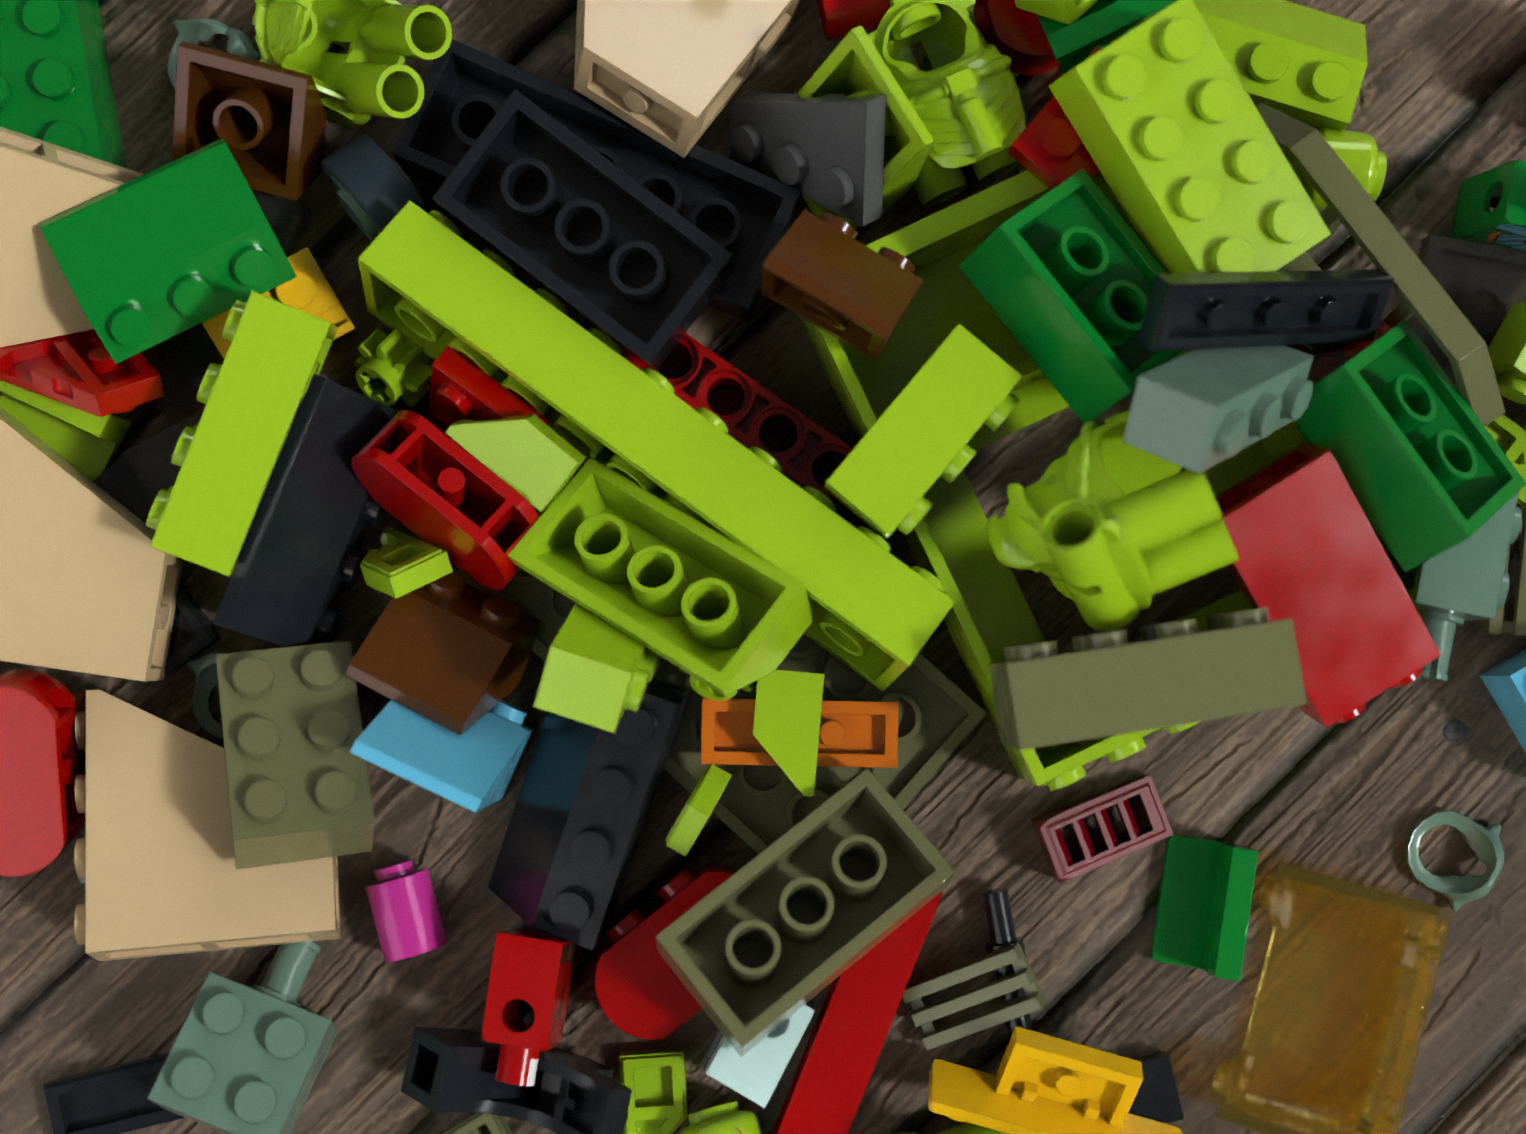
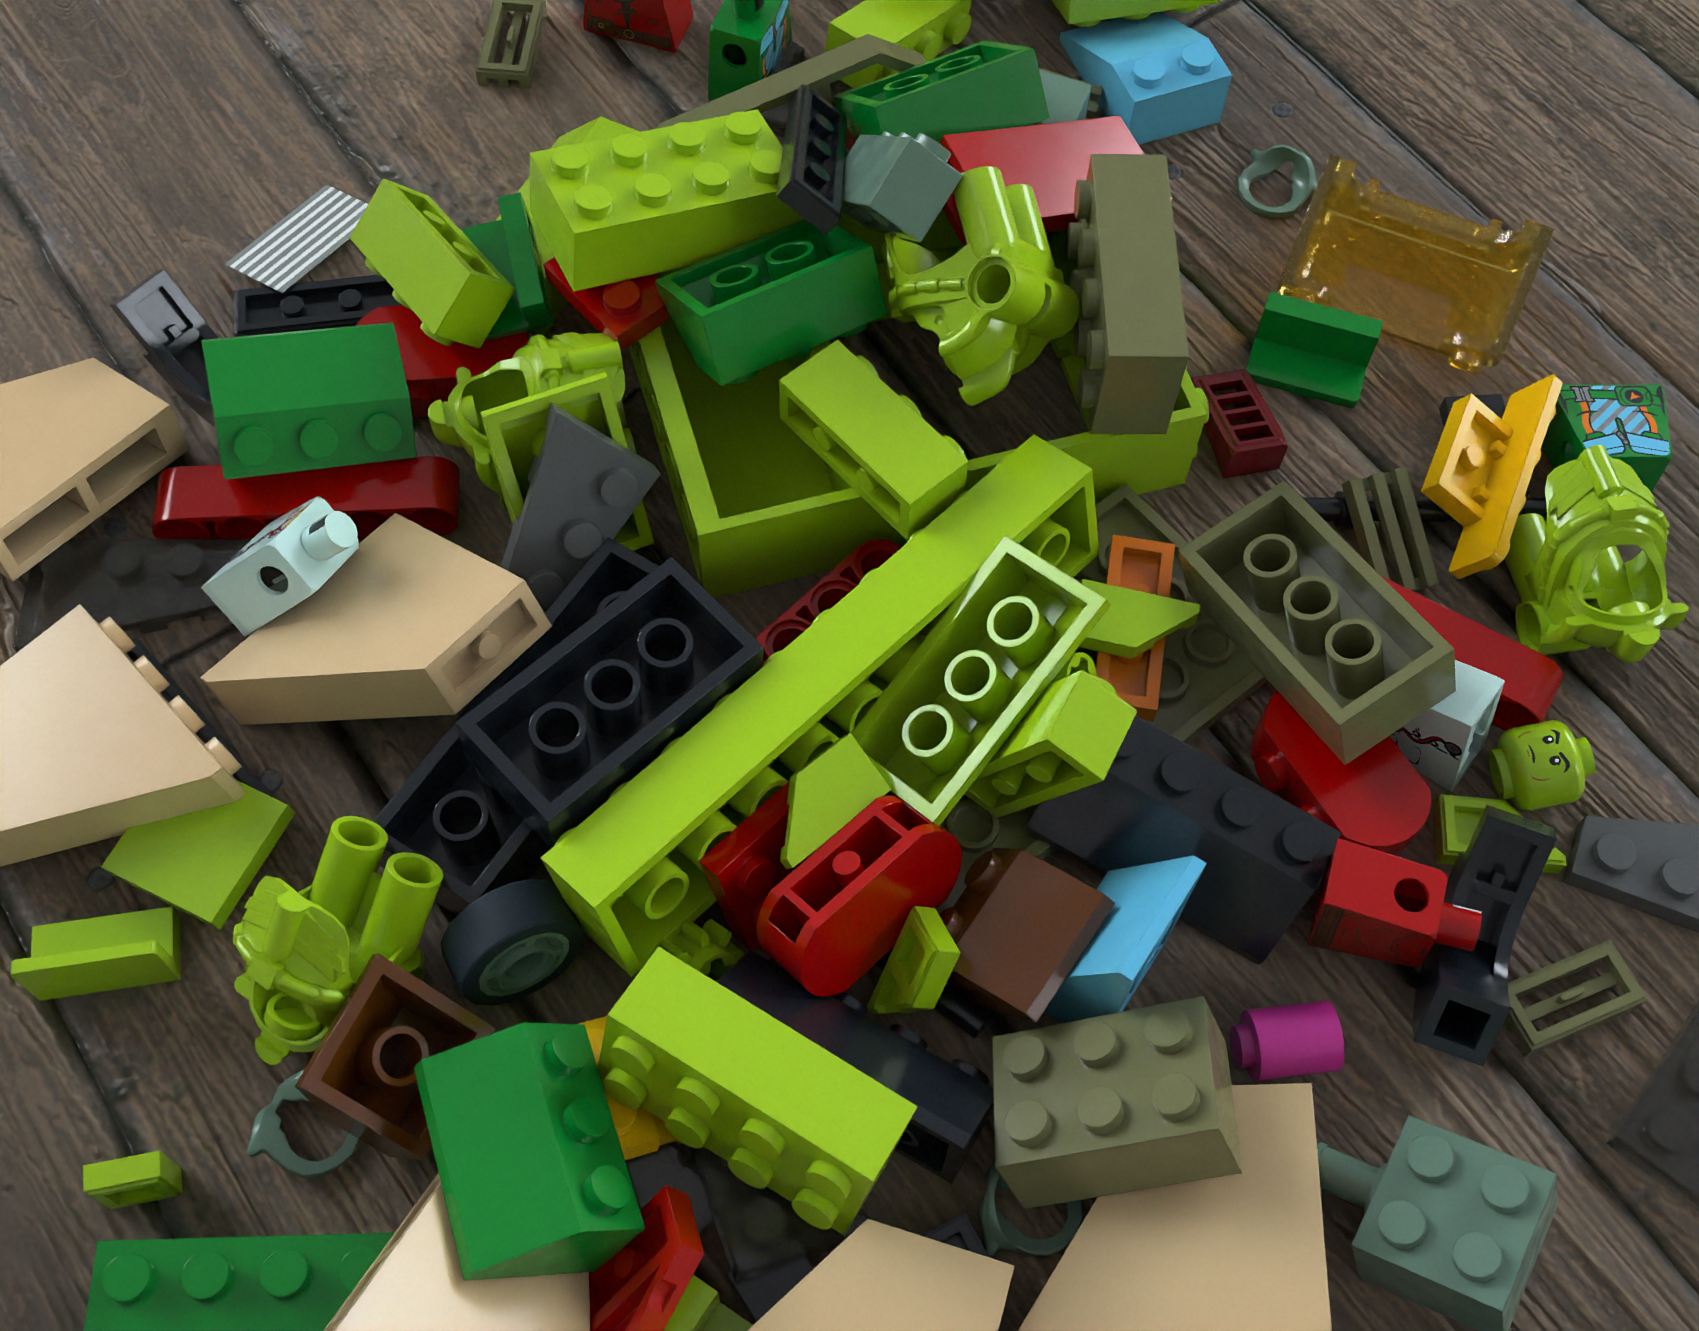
camera: 80 degrees left, 25 degrees down
(697, 809) = (1207, 721): lime tile -> none
(840, 282) = (723, 475): reddish brown slope -> none

